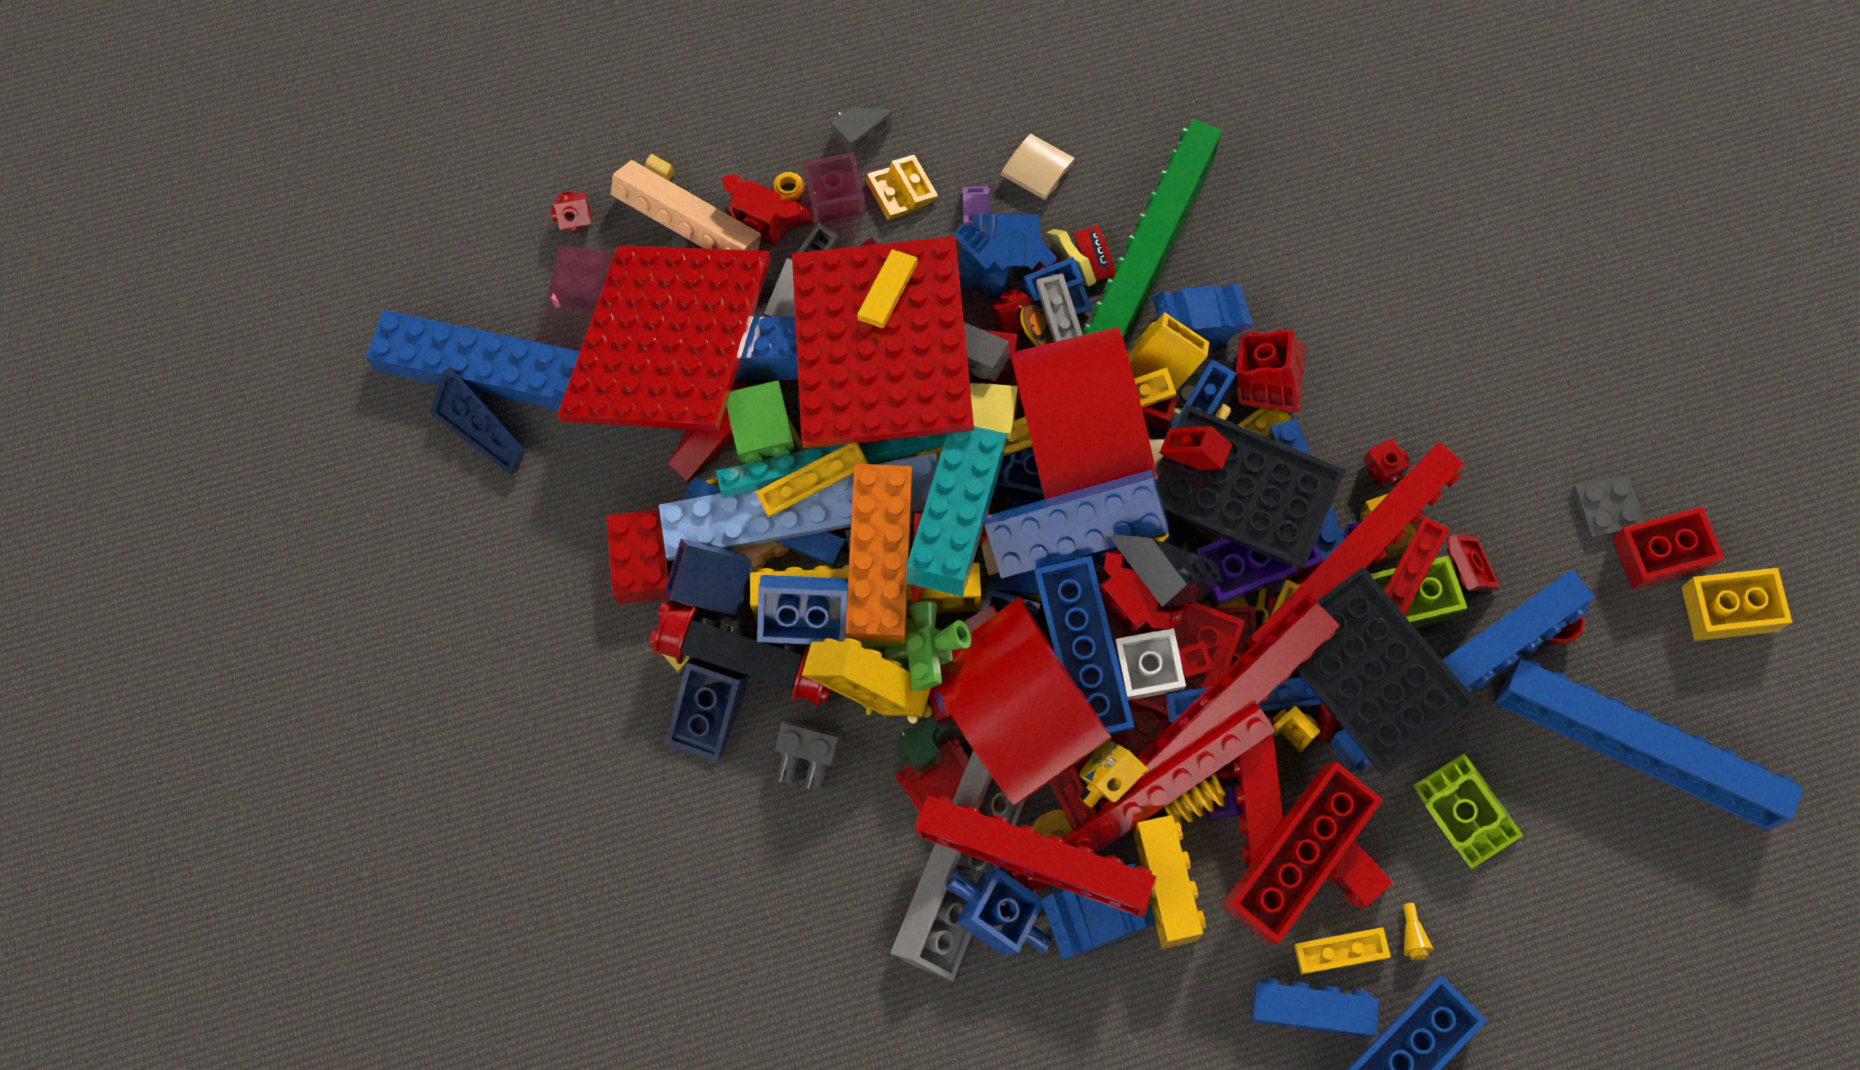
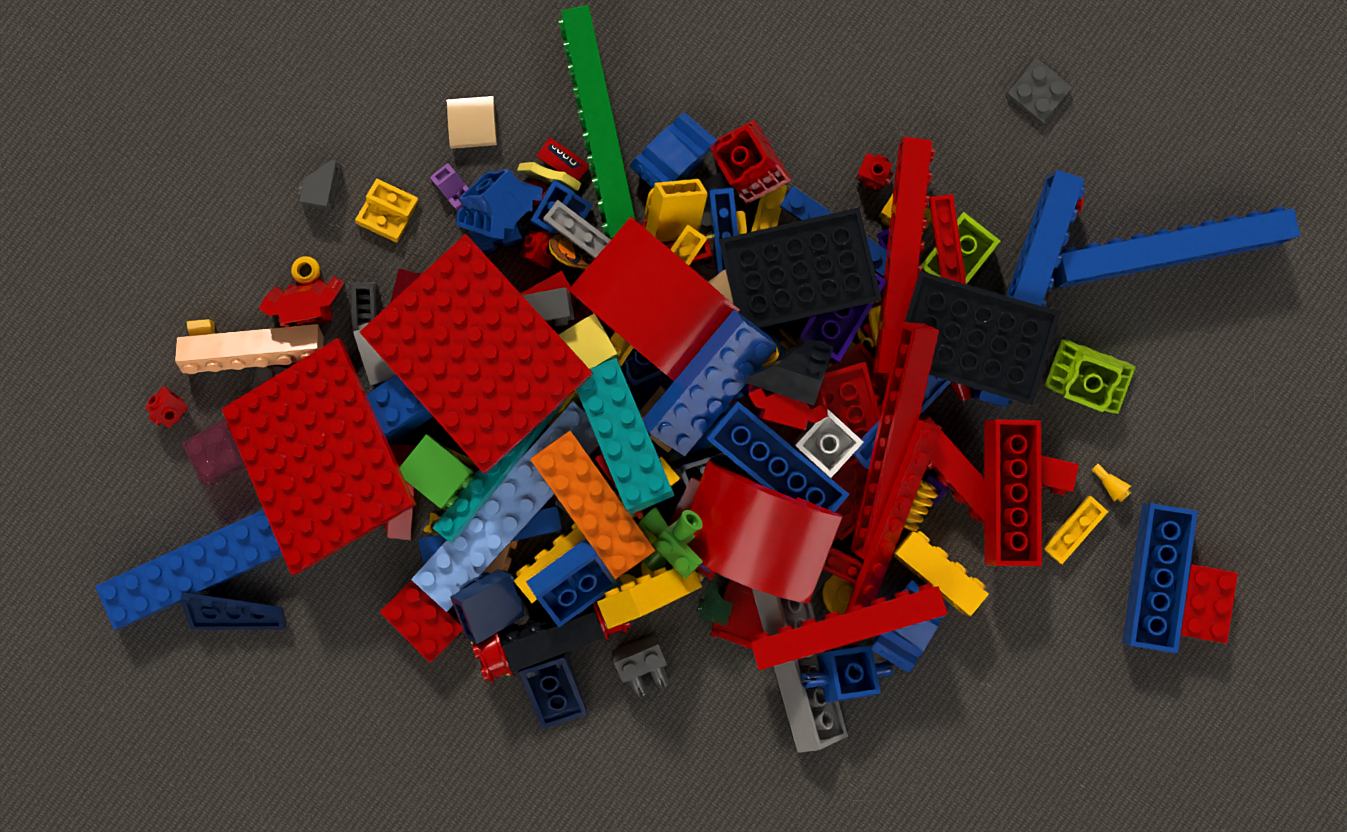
camera: 40 degrees left, 15 degrees up
(810, 479) = (504, 487): yellow tile -> none
(834, 187) = (340, 249): clear pink brick -> none
(887, 288) = (452, 312): yellow tile -> none
(1109, 773) = (854, 534): yellow torso -> none
(1195, 660) = (853, 415): red plate -> none
(1196, 447) = (750, 269): red slope -> none
(1295, 727) = (948, 406): yellow bracket -> none
(1314, 1009) = (1084, 581): blue brick -> none
(1472, 563) = (980, 203): red plate -> none
(1667, 548) = (1098, 96): red brick -> none
(1736, 604) = (1167, 103): yellow brick -> none

